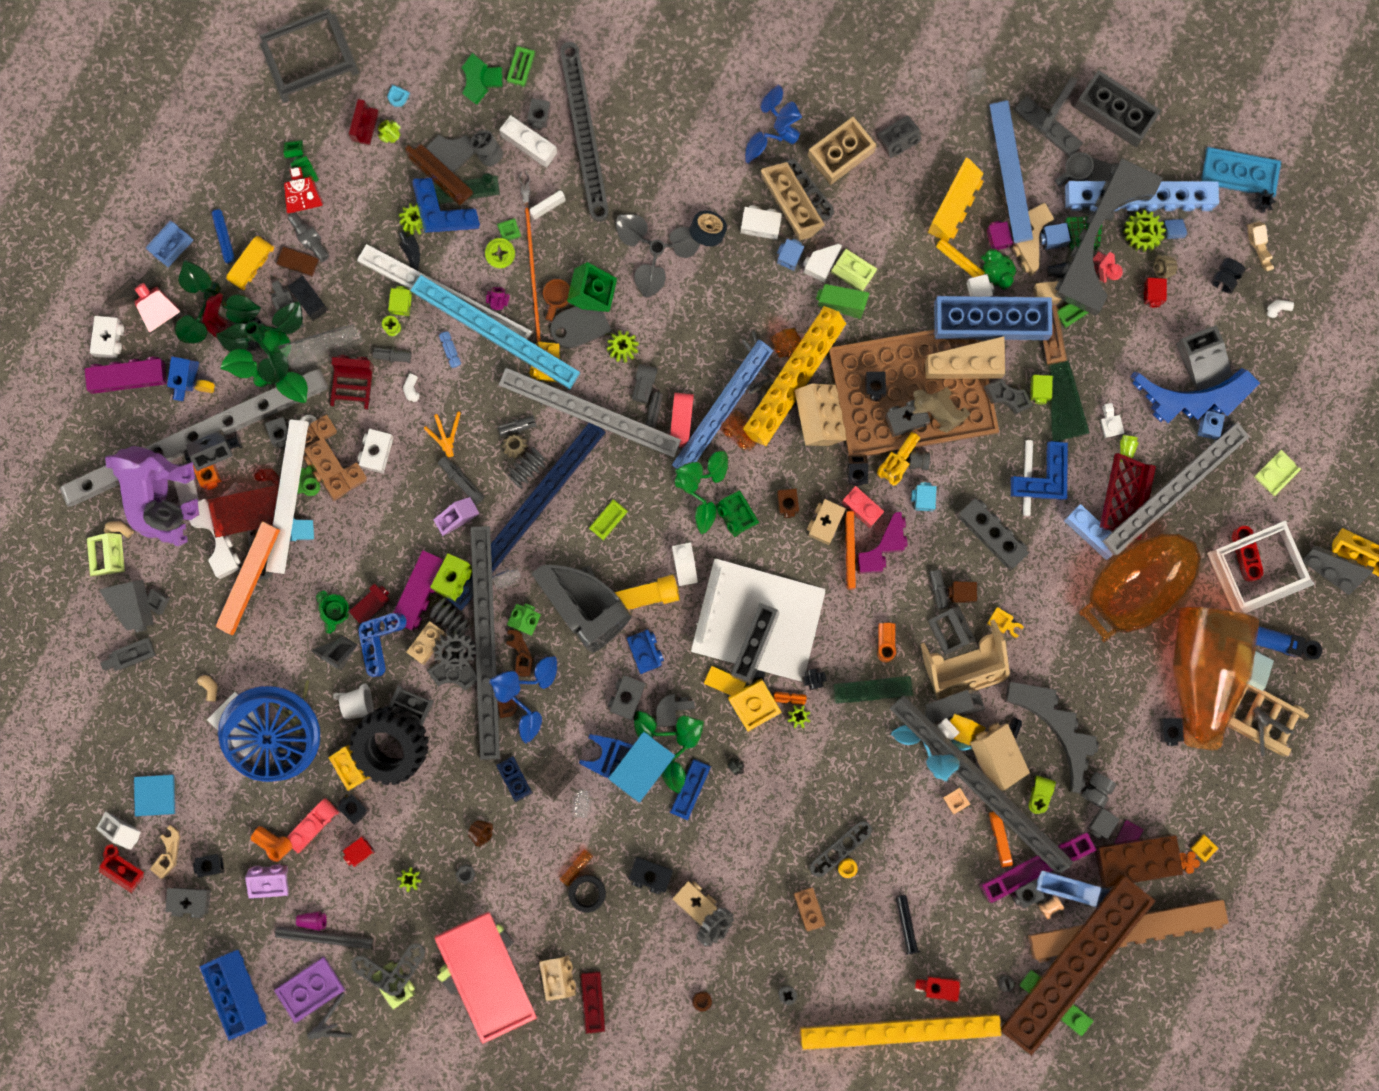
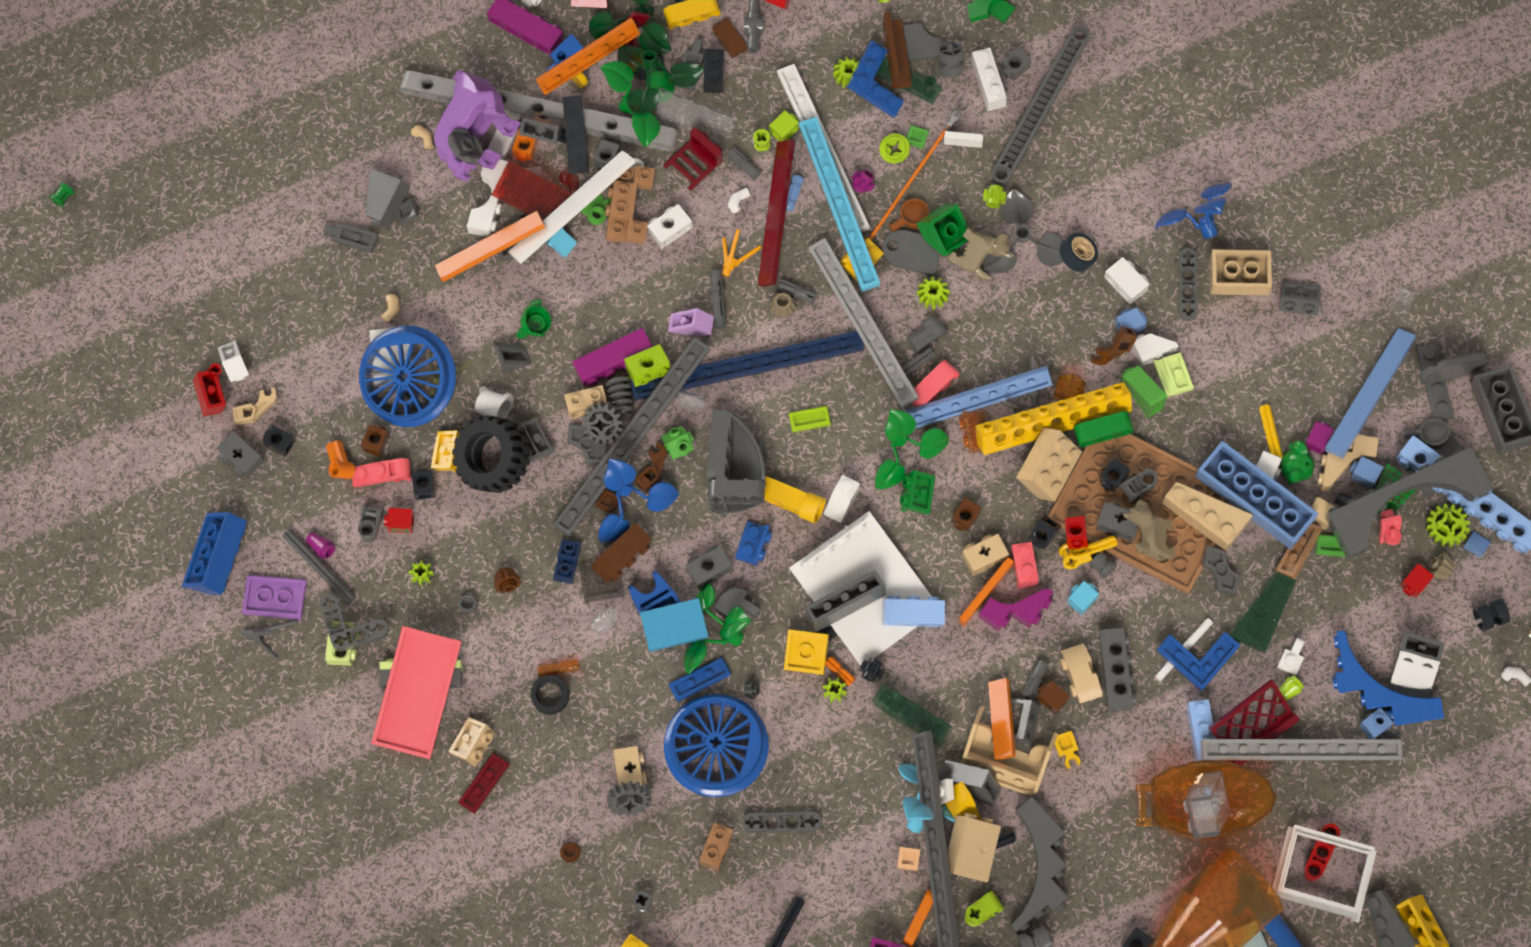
camera: 45 degrees right, 10 degrees down
(112, 554) = (403, 150): yellowish green tile -> none
(154, 795) = (282, 357): dark azure tile -> none
(199, 364) = (587, 56): none -> orange tile
(241, 435) = (575, 134): none -> black tile
(267, 881) = (311, 488): lavender bracket -> none
(293, 808) = (378, 447): none -> reddish brown brick
(334, 870) = (370, 519): none -> dark grey piece
(370, 604) = (568, 339): dark red bracket -> none
(373, 638) = (531, 389): blue beam -> none
(411, 249) = (826, 94): black bar -> none
(450, 376) = (776, 213): none -> dark red tile
(516, 81) = (1014, 22): bright green tile -> none
(526, 467) = (777, 328): dark grey piece -> none
(553, 741) = (622, 554): none -> reddish brown brick
(608, 233) = (994, 196): none -> lime gear
(630, 286) = (978, 249): none -> dark tan animal
(662, 873) = (609, 708): black brick -> none
(723, 681) = (796, 615): yellow tile -> none
(779, 811) = (756, 751): none -> blue piece
(792, 200) = (1166, 280): tan slope -> none
(799, 275) = (1109, 353): none -> reddish brown piece
(809, 609) = (913, 612): none -> light blue brick
(838, 354) = (1103, 429): none -> green beam
(847, 868) = (774, 841): yellow plate -> none
(878, 447) = (1077, 526): none -> red brick
(886, 639) = (956, 686): orange piece -> none
(899, 381) = (1136, 488): none -> dark grey piece
(940, 639) = (1001, 719): none -> orange tile
(957, 199) = (1304, 381): yellow slope -> none
(976, 561) = (1079, 668): none -> tan brick
(1041, 389) = (1253, 585): lime brick -> none
(1151, 590) = (1207, 805): none -> clear brick
(1277, 473) = (1403, 808): yellowish green plate -> none

